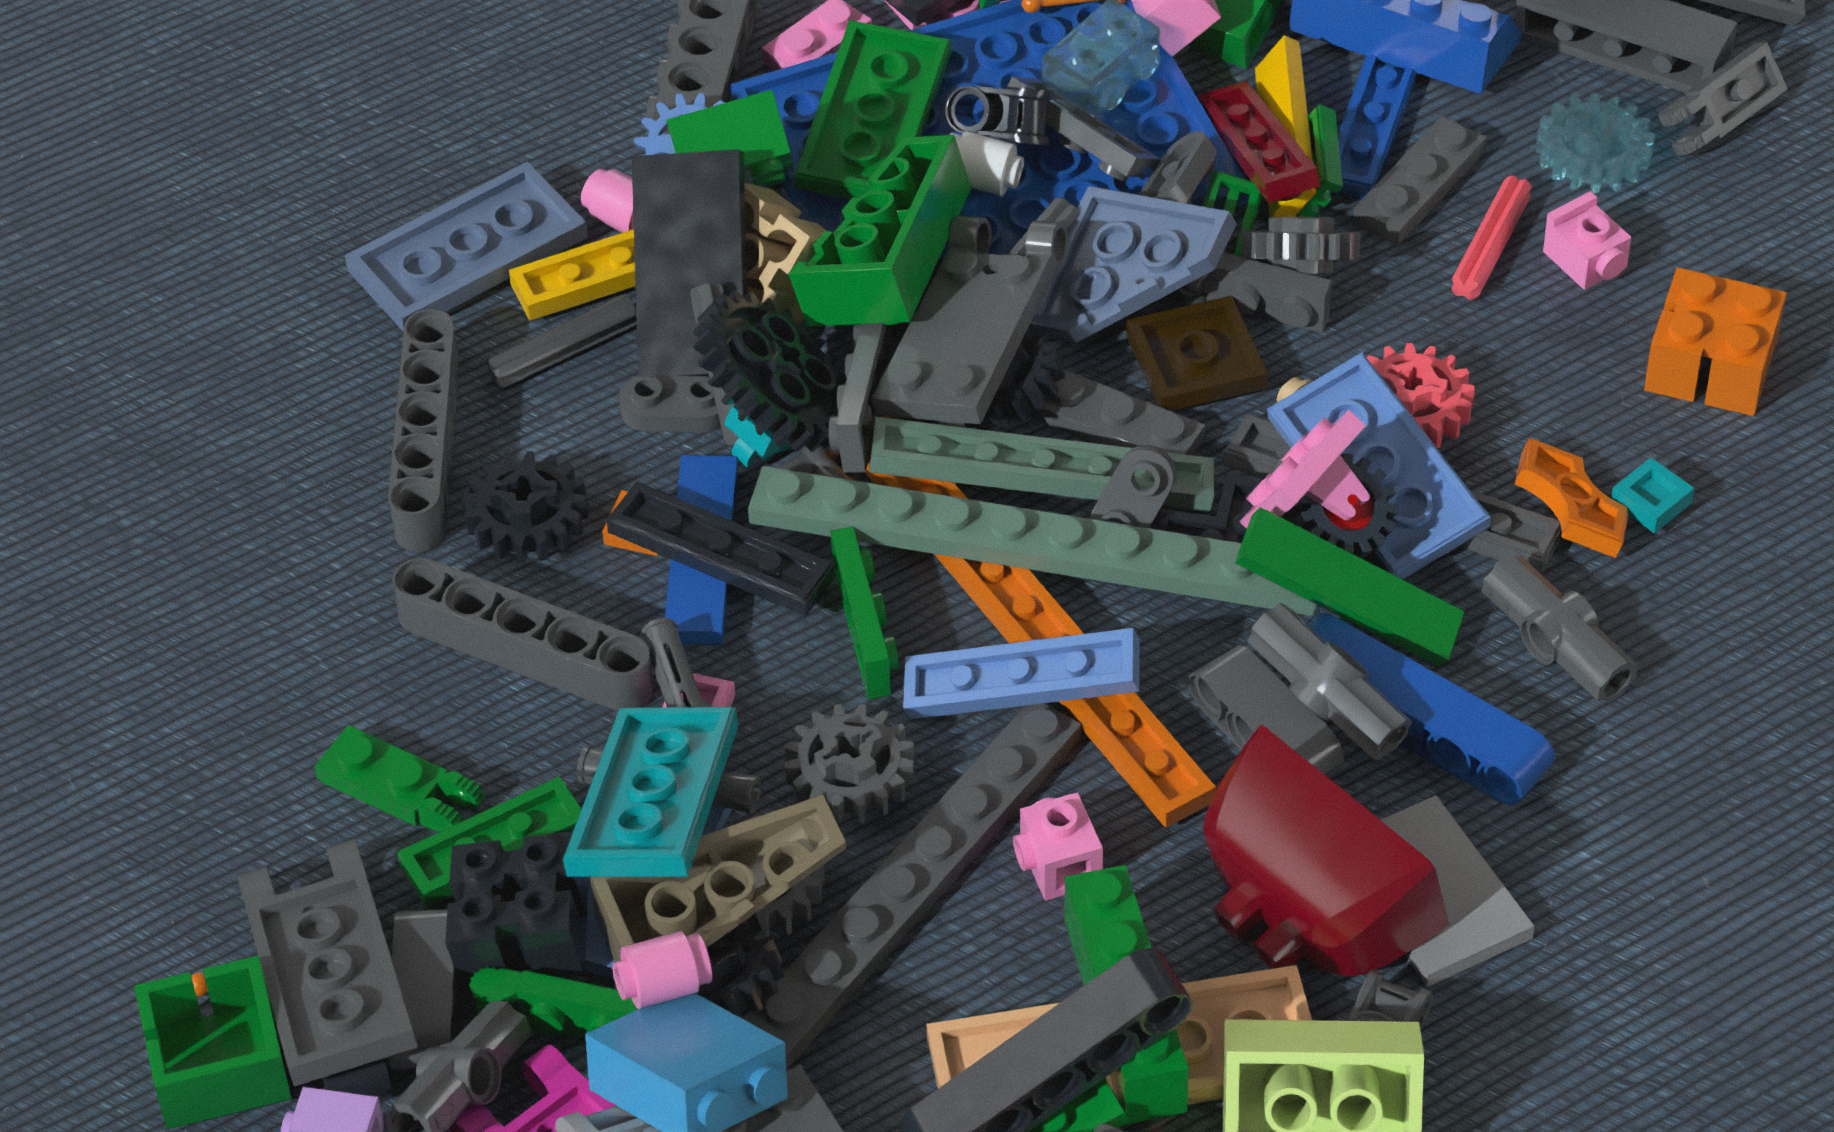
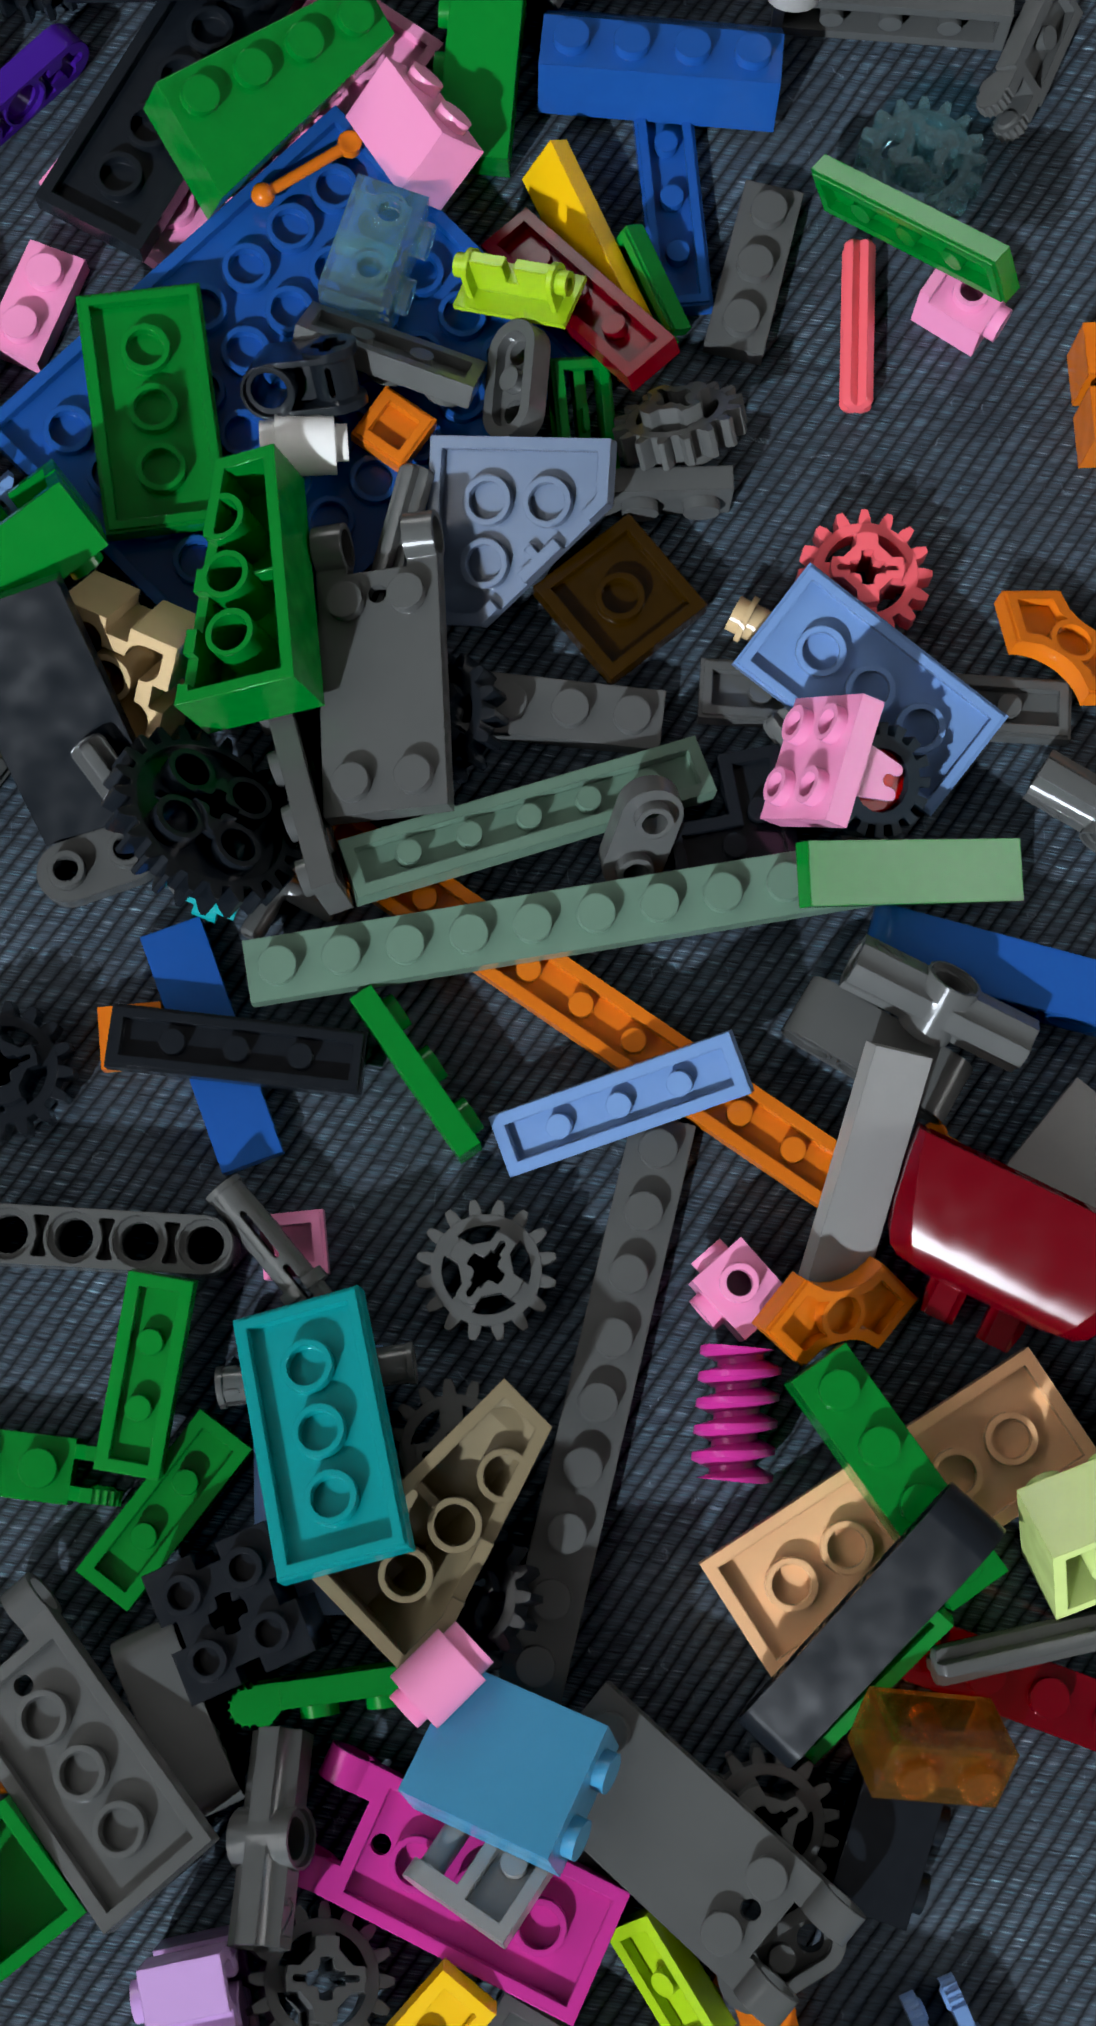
camera: 25 degrees left, 30 degrees up
(528, 725) = (145, 1374): none -> green plate
(1013, 924) = (736, 1413): none -> dark pink piece
(1060, 177) = (393, 429): none -> orange tile
(1166, 889) = (813, 1315): none -> orange tile
(1175, 822) = (865, 1161): none -> light grey tile
(1221, 116) = (520, 290): none -> lime hinge
(1560, 166) = (916, 228): none -> green tile

